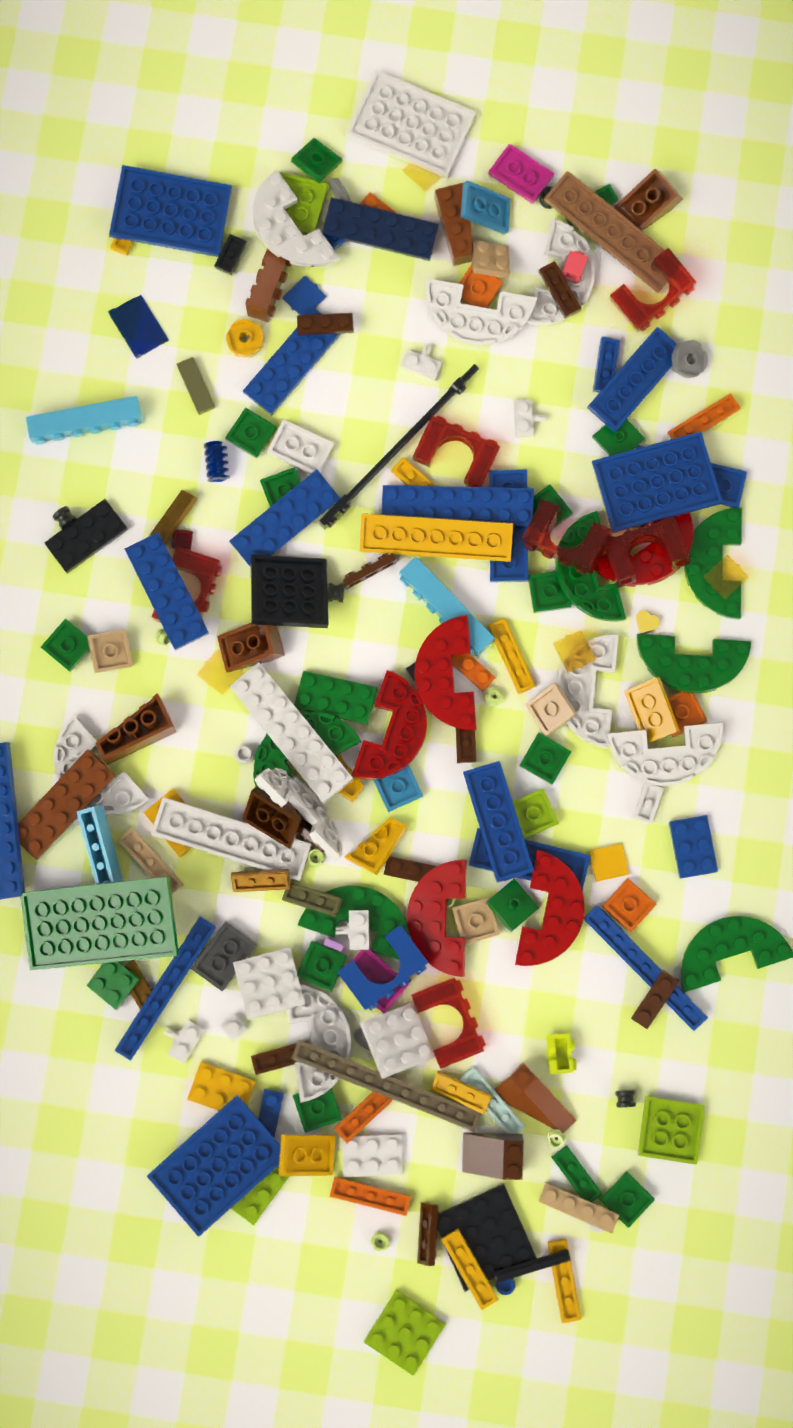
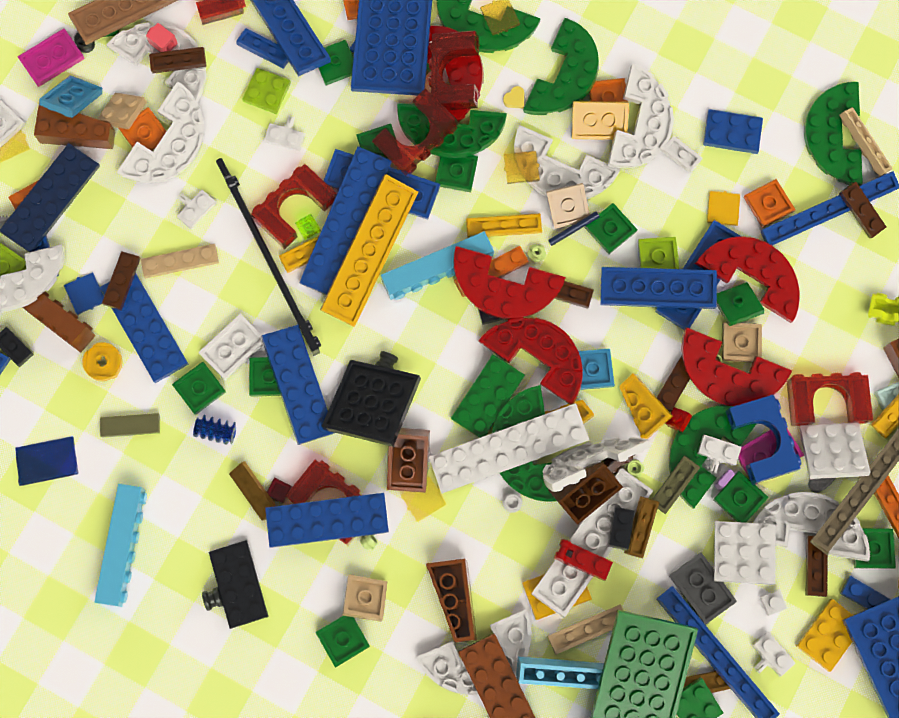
camera: 70 degrees left, 5 degrees down
(208, 835) = (583, 560): none -> red plate
(251, 860) = (621, 528): none -> black plate
(365, 369) = (179, 261): none -> tan plate
(369, 570) = (375, 323): reddish brown plate -> none
(377, 884) = (679, 420): none -> red plate
(439, 472) = (307, 226): none -> clear neon green tile
(532, 723) = (575, 227): none -> dark blue bar
(564, 384) = (266, 91): none -> lime plate
(729, 982) = (866, 142): none -> tan plate

